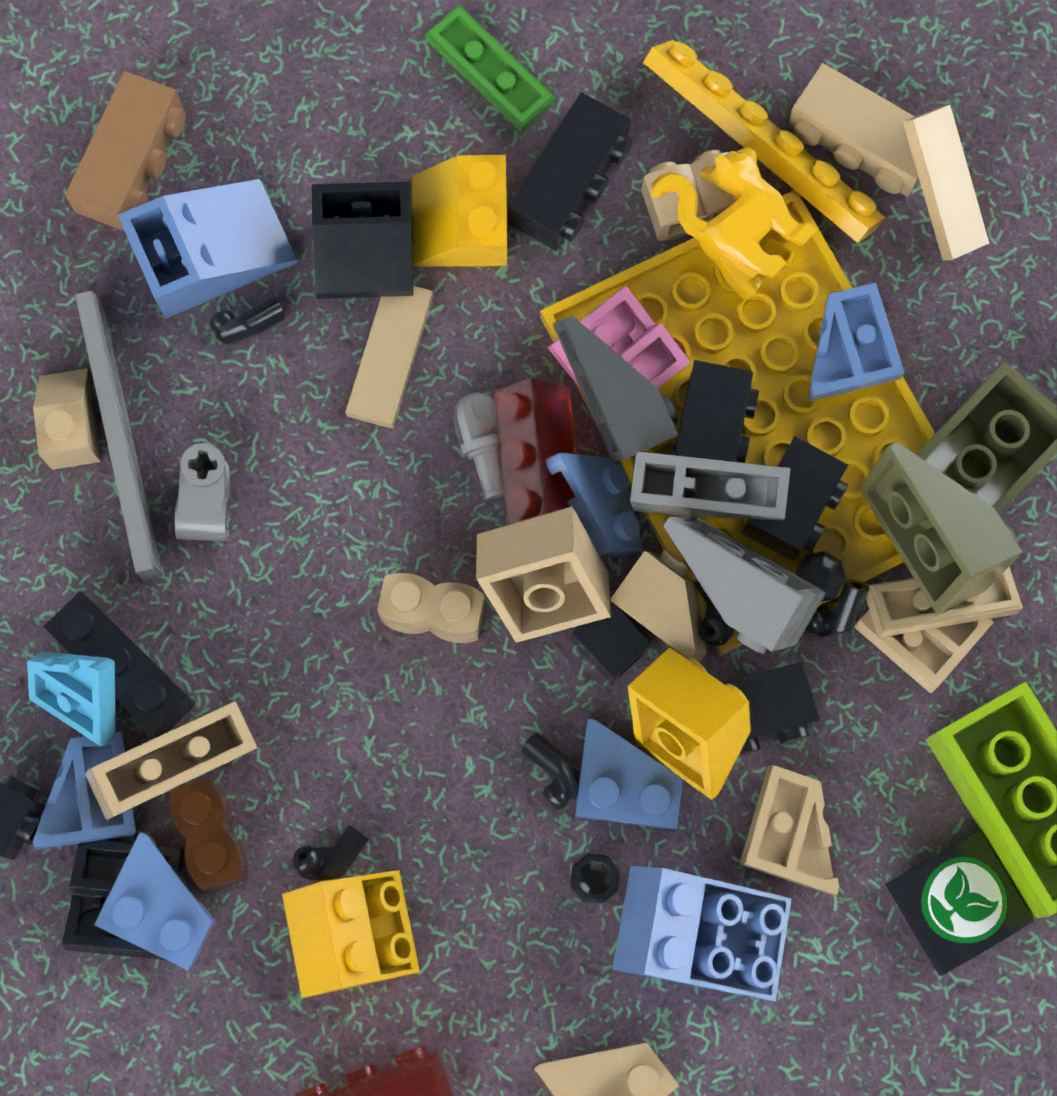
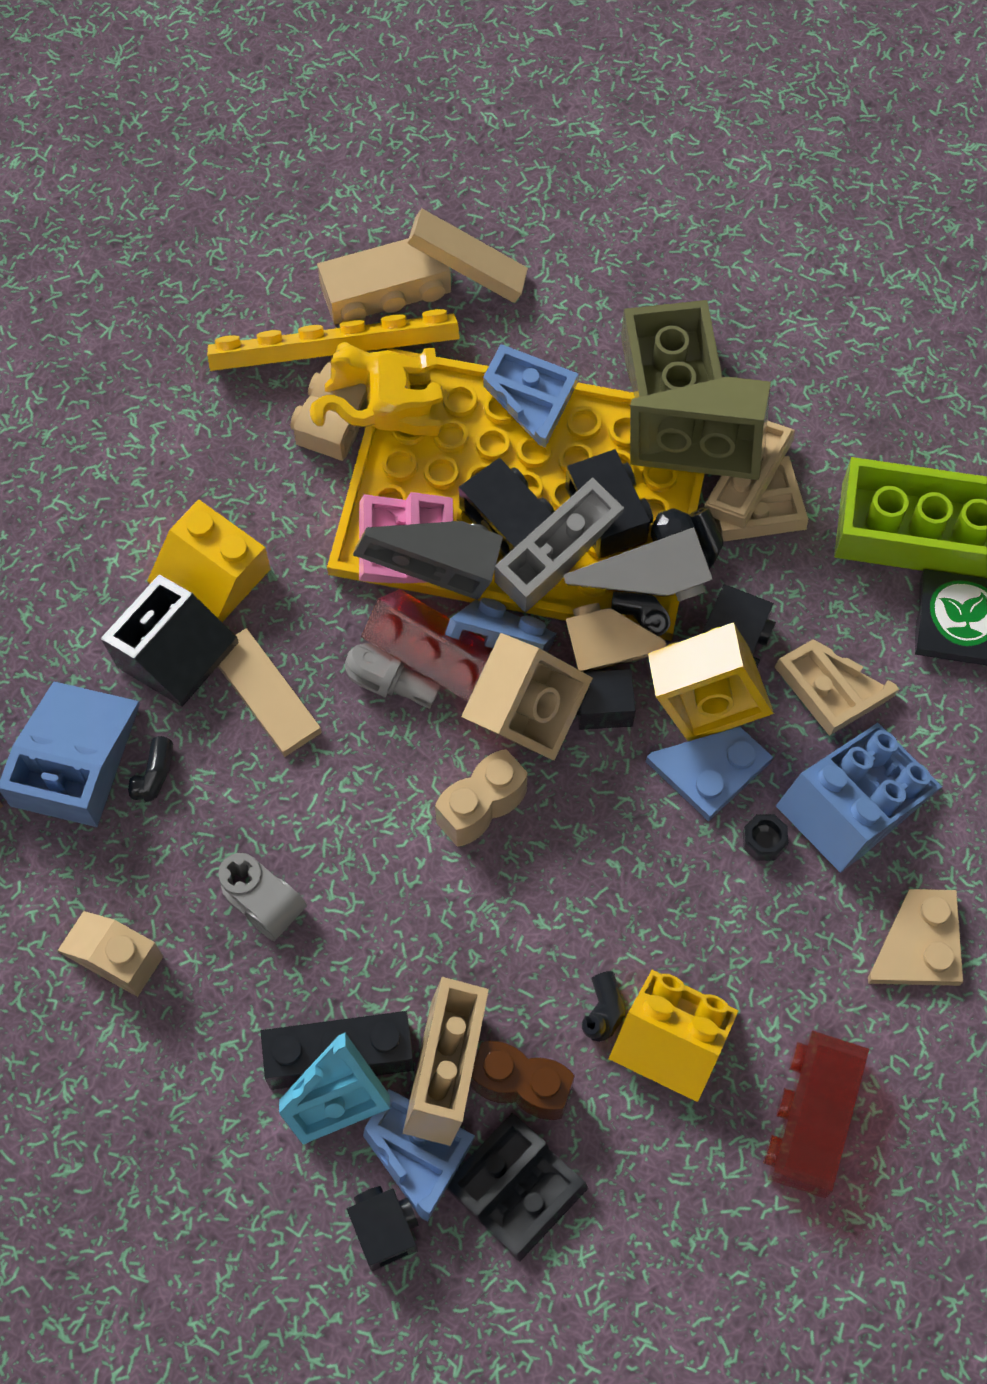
camera: 50 degrees left, 10 degrees down
(119, 437) = (160, 922): light grey tile -> none
(155, 907) = (546, 1157): medium blue wing -> none
(490, 68) = (117, 472): bright green tile -> none
(557, 766) = (666, 802): black arm -> none
(570, 172) = (245, 473): black brick -> none

